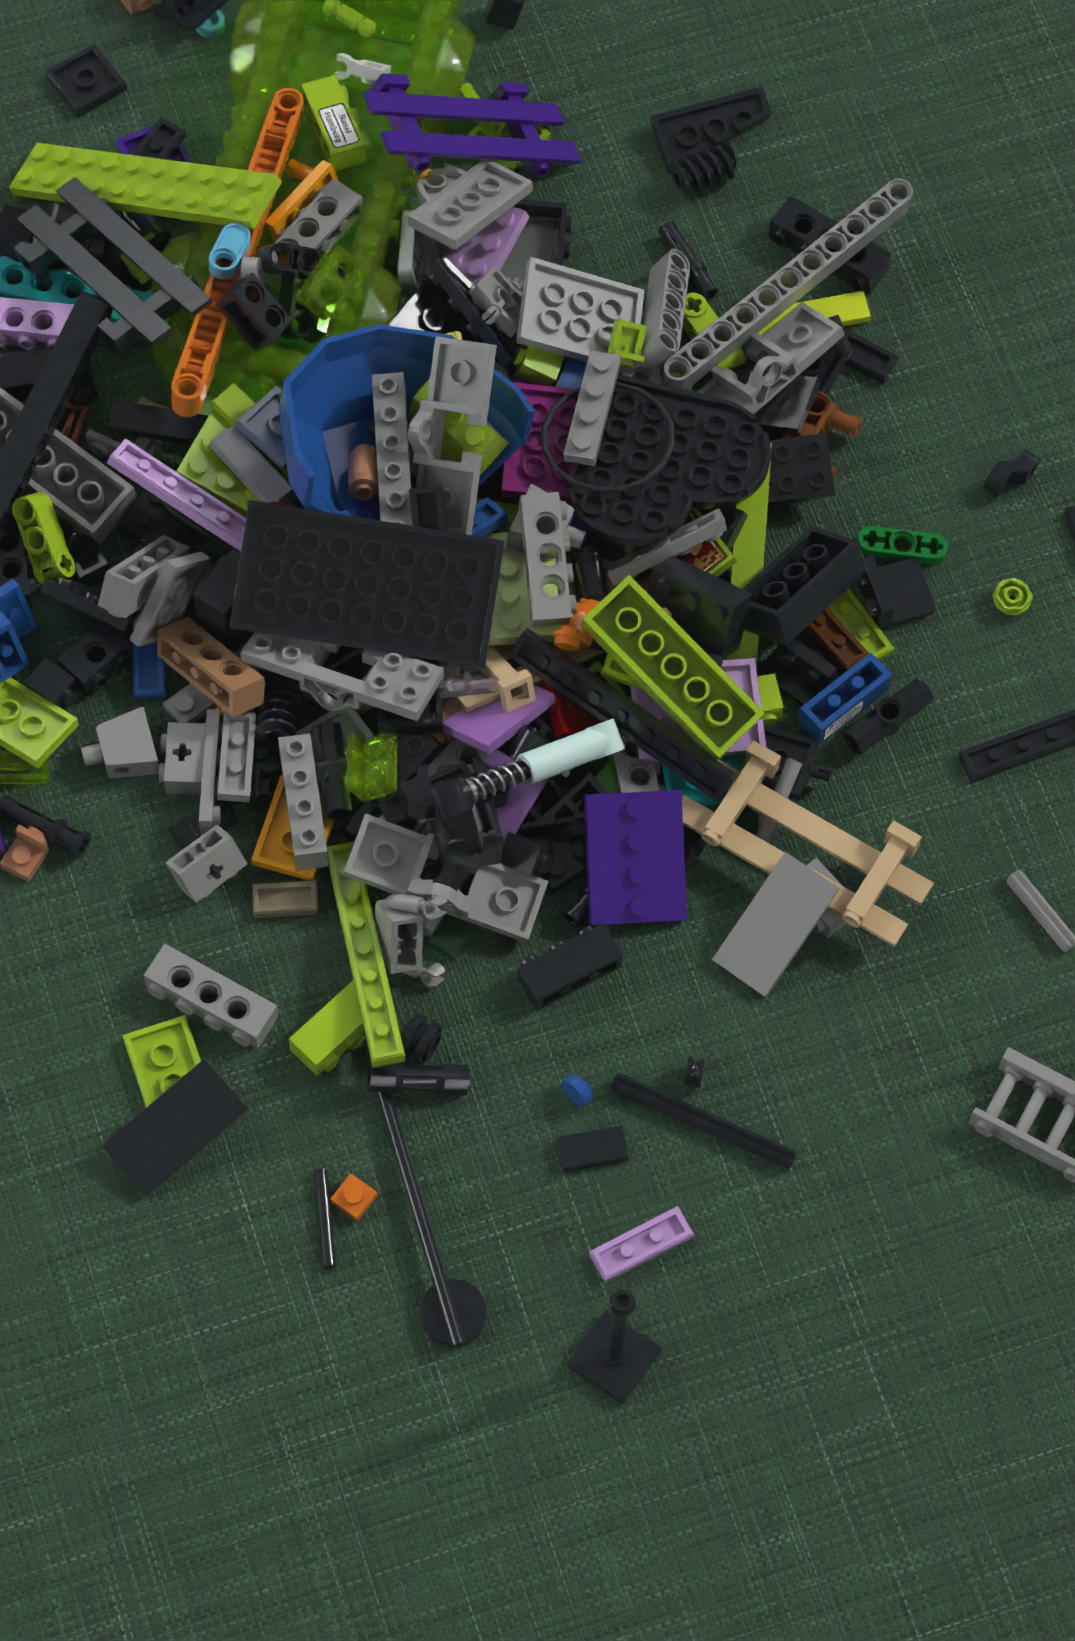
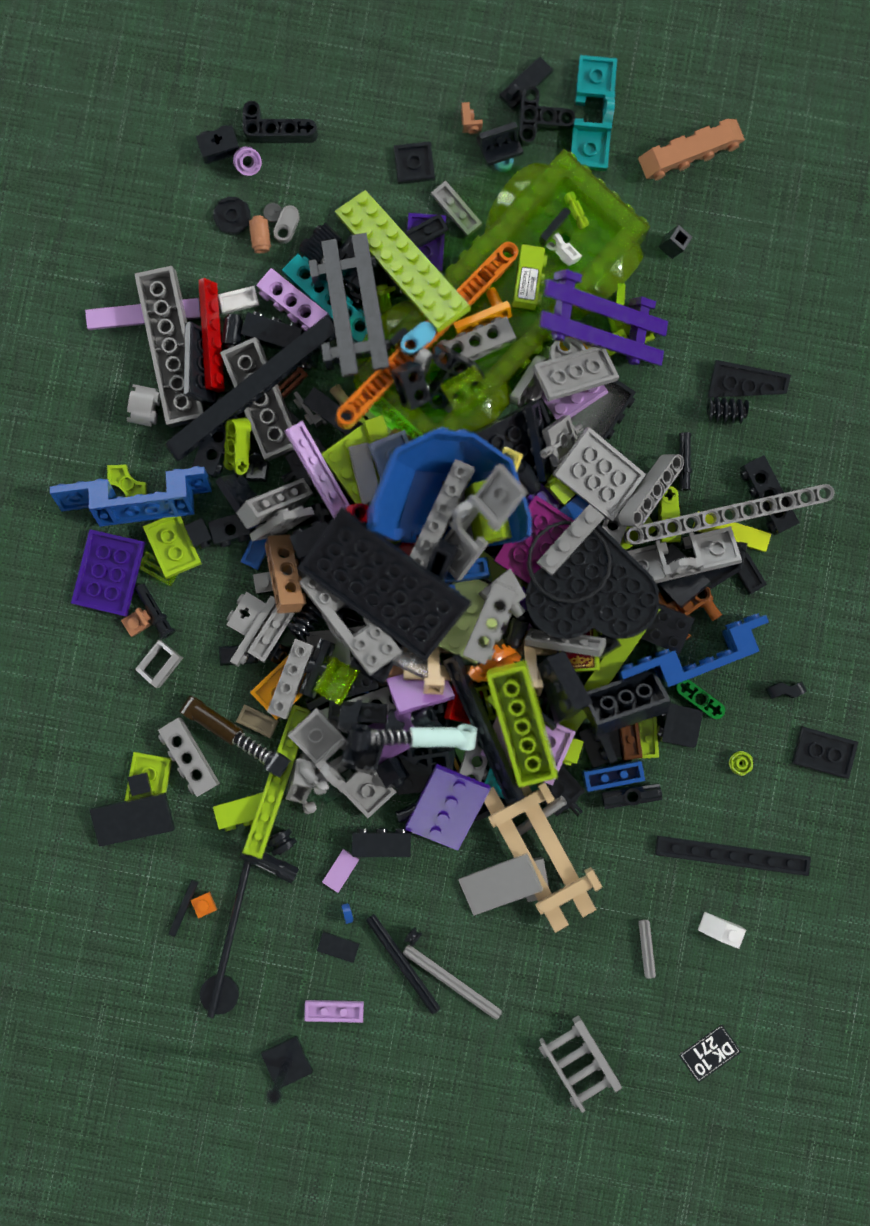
camera: 30 degrees right, 20 degrees up
(103, 916) = (165, 671): none -> light grey tile
(124, 746) = (219, 589): light grey torso -> none
(157, 1070) = (139, 784): none -> black tile
(179, 106) = (456, 208): none -> light grey plate
(186, 925) = (198, 711): none -> piece
(201, 267) = (396, 340): none -> black tile
(206, 863) = (224, 683): light grey brick -> none
(331, 46) = (554, 226): none -> black tile
(363, 473) = (421, 512): nougat head -> none
(531, 1040) = (340, 870): none -> lavender tile
(627, 341) = (614, 506): lime bracket -> none
(791, 1107) = (452, 982): none -> light grey axle
(905, 438) = (668, 667): none -> blue bracket

